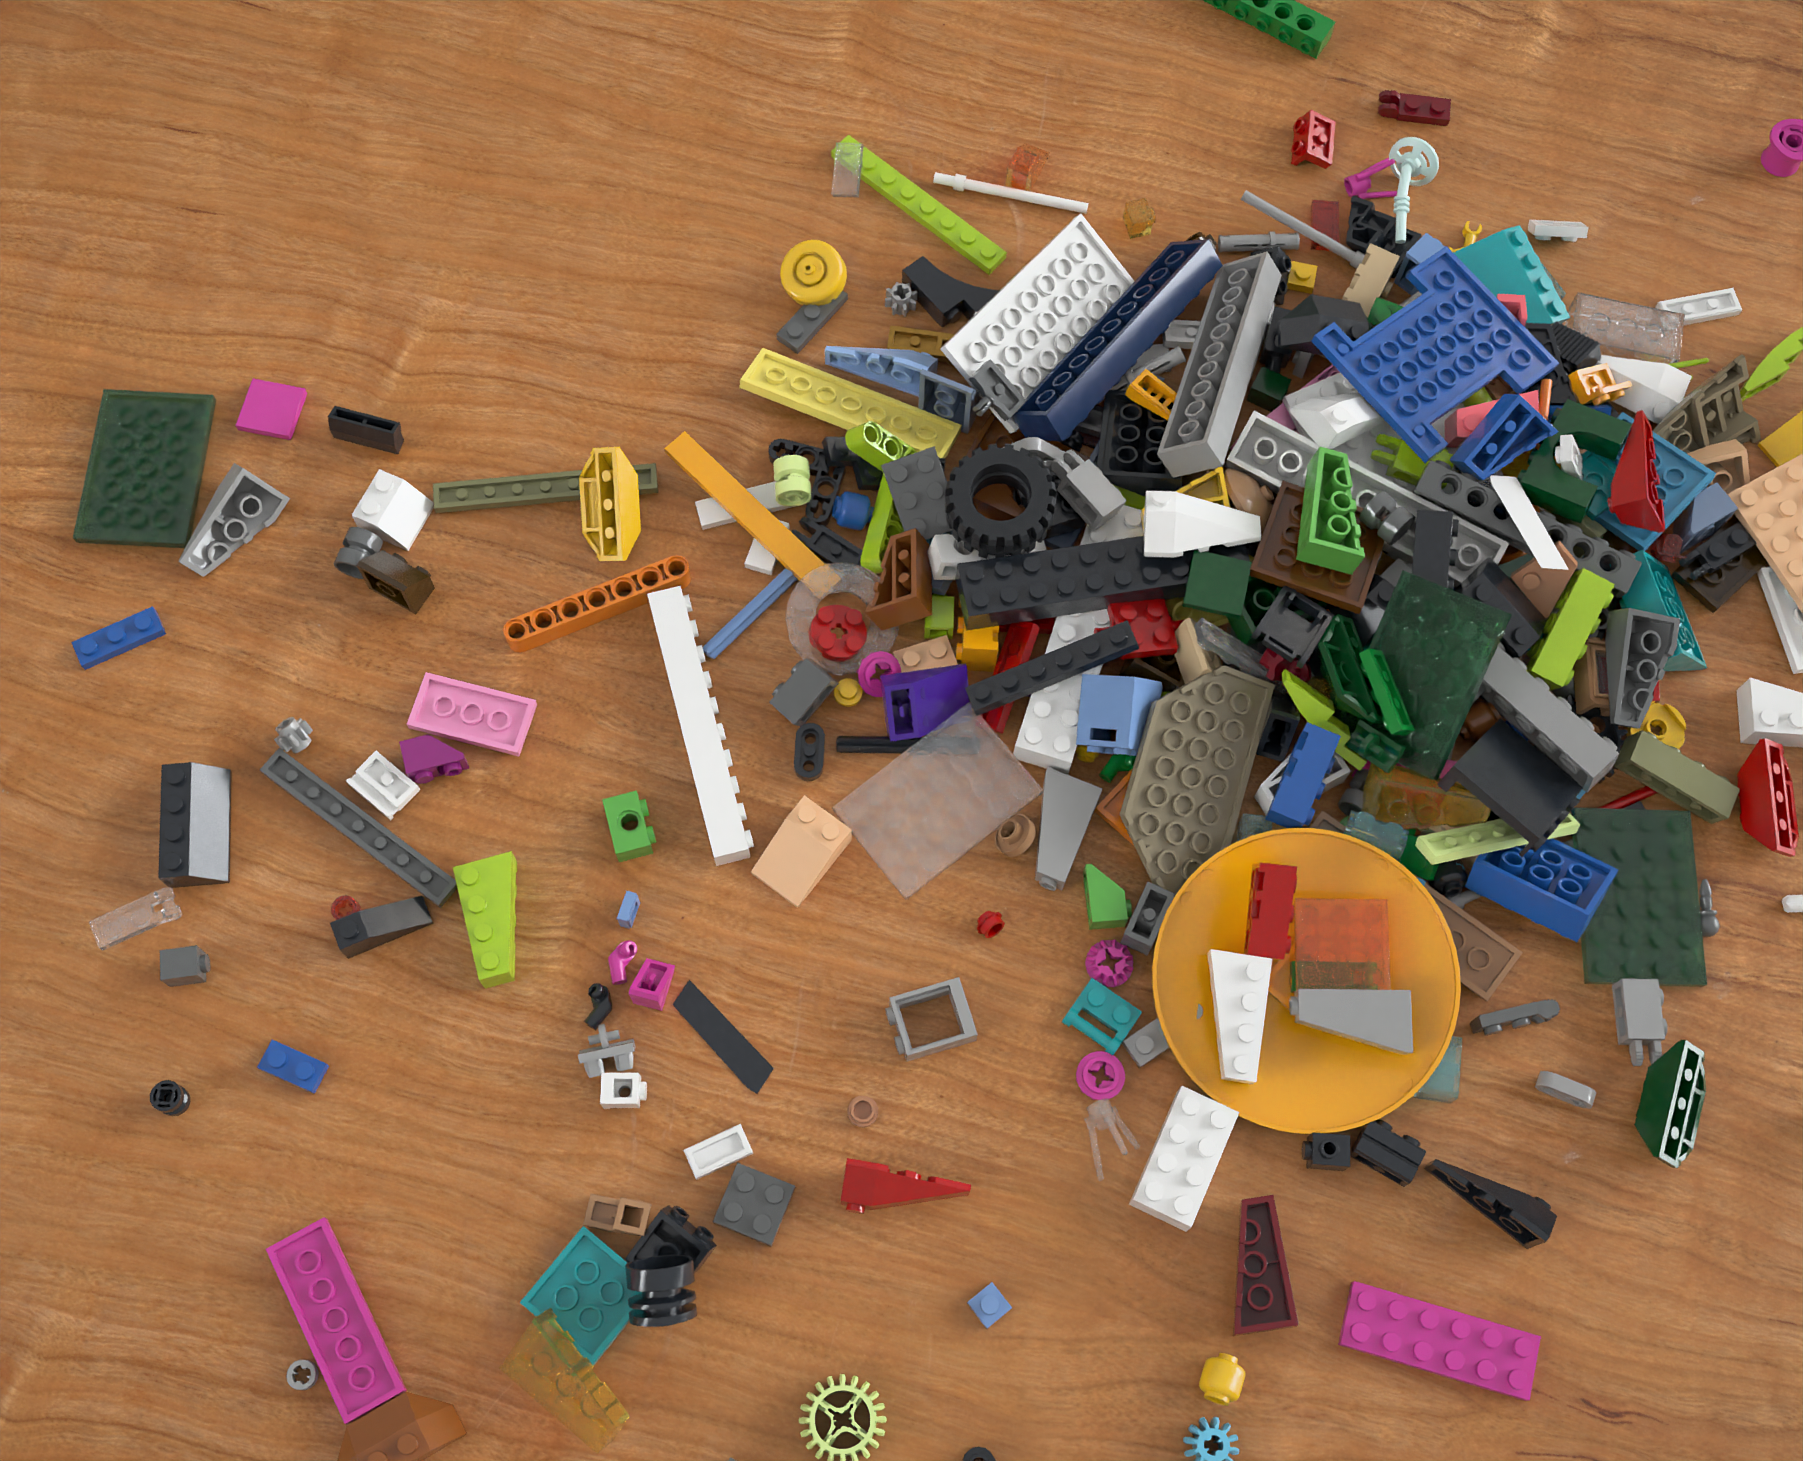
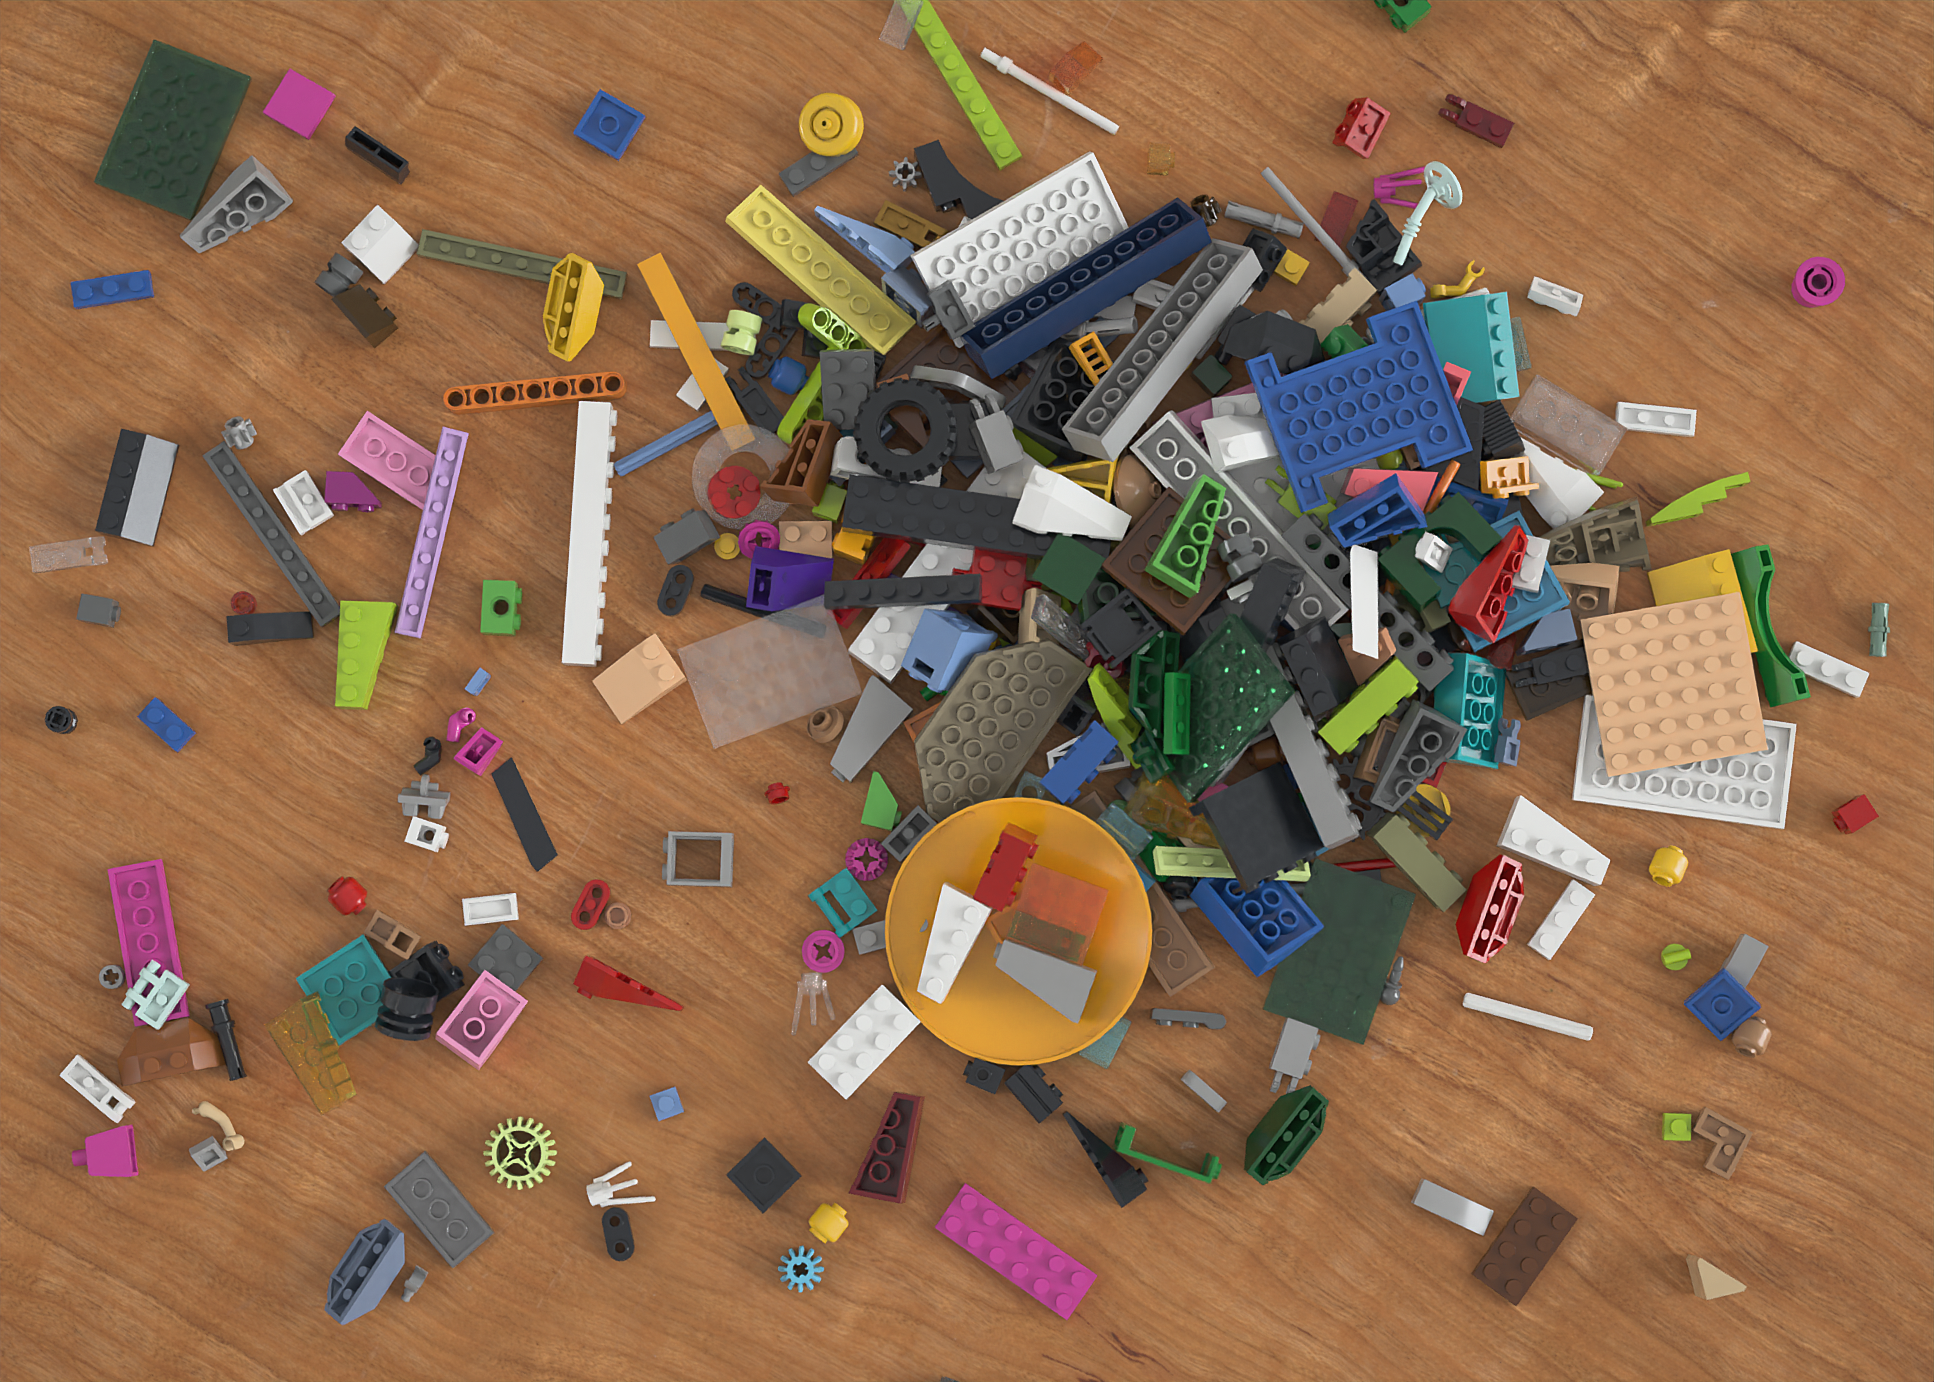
camera: 20 degrees right, 15 degrees up
(368, 1377) = (161, 999): none -> light aqua plate
(450, 1389) = (224, 1027): none -> black pin
(531, 773) = (431, 532): none -> lavender tile
(552, 1188) = (347, 896): none -> red head
(593, 338) = (609, 125): none -> blue plate
(748, 1279) = (481, 1020): none -> bright pink slope
(829, 1109) = (590, 904): none -> red plate
(951, 1434) = (601, 1192): none -> white plant
(1128, 1350) = (763, 1175): none -> black plate
(1398, 558) = (1241, 592): none -> white plate
(1522, 1166) = (1209, 1170): none -> green panel
(1658, 722) = (1441, 827): none -> black tile
(1667, 456) = (1532, 565): none -> white plate
(1709, 642) = (1507, 745): none -> sand blue plate

